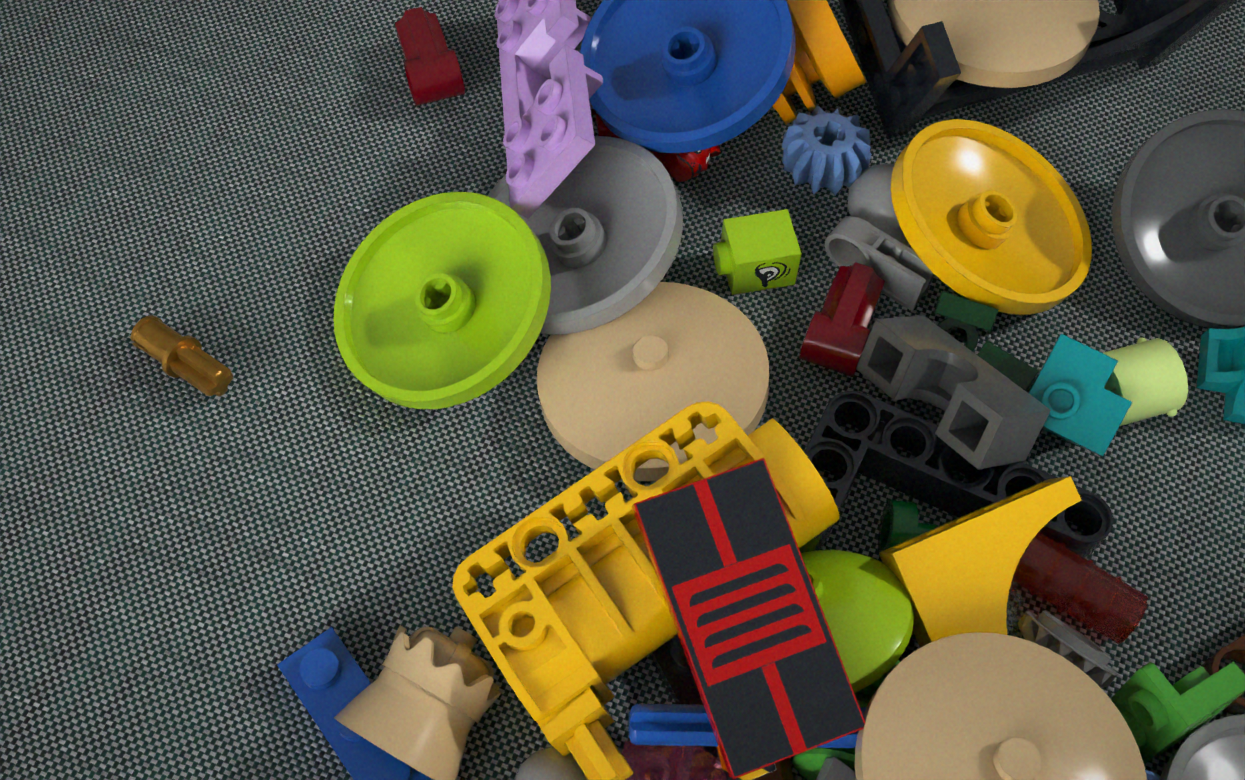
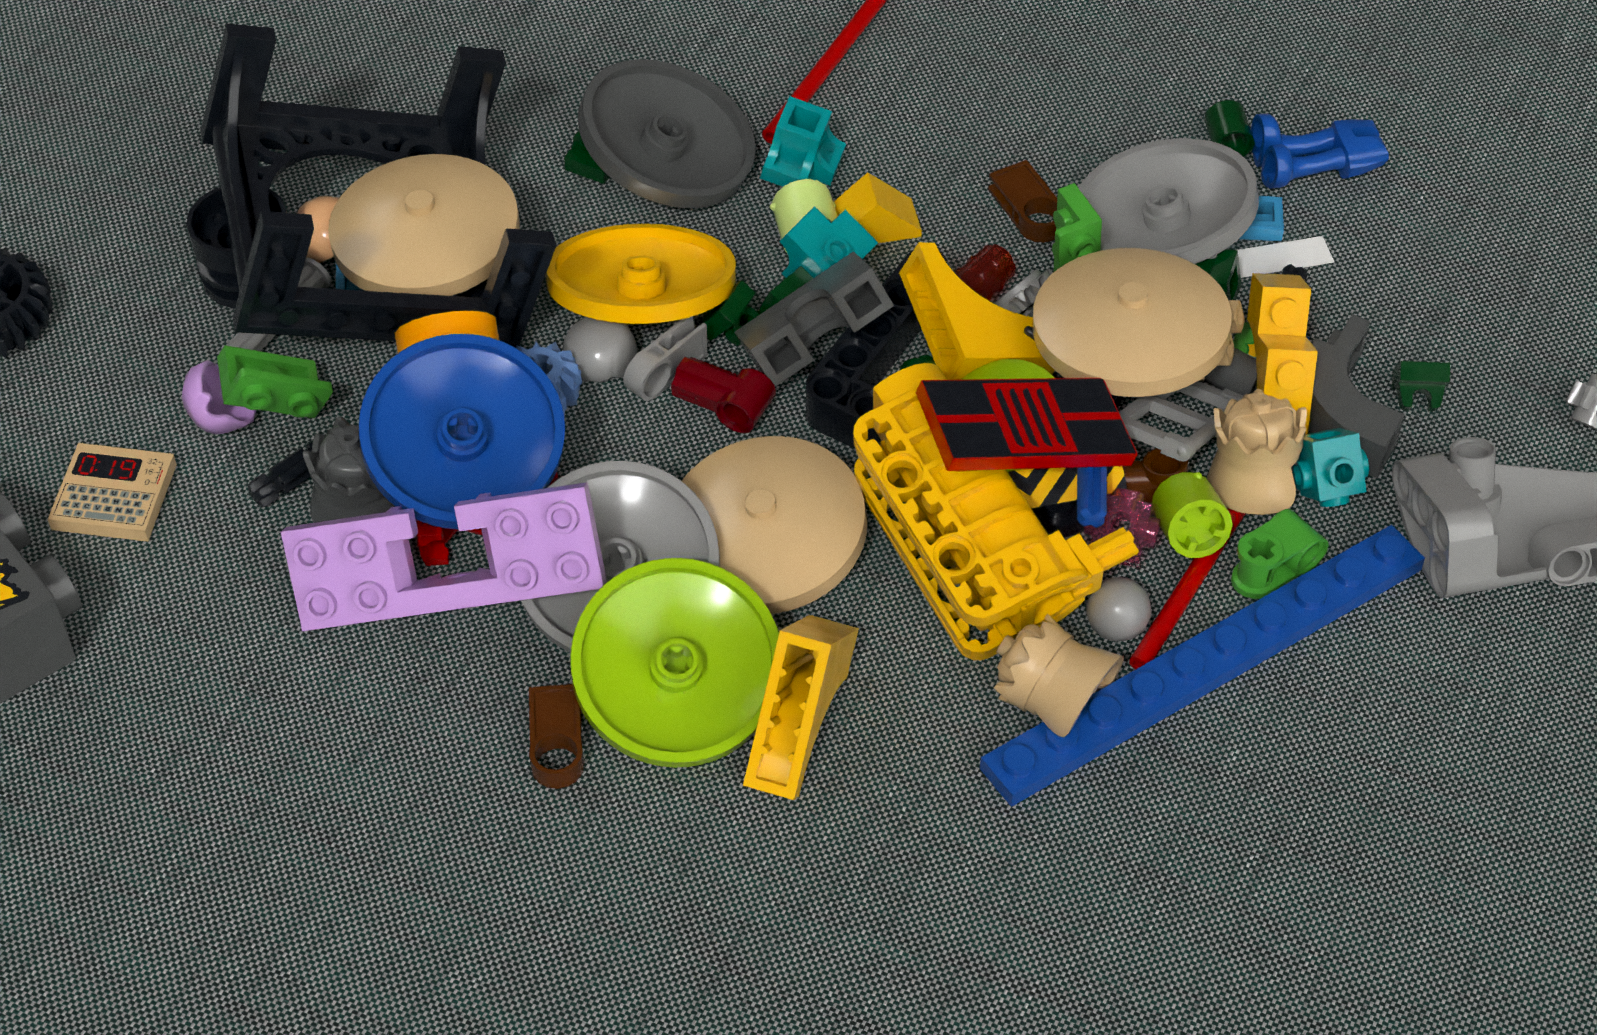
camera: 85 degrees left, 10 degrees down
(181, 356) = (701, 885): pearl gold axle -> none
(373, 205) = (555, 725): none -> reddish brown piece
(408, 414) = (804, 676): none -> yellow arch
(428, 64) = (380, 682): dark red piece -> none
(758, 252) = (647, 433): lime brick -> none
(1177, 467) = (880, 210): none -> yellow slope

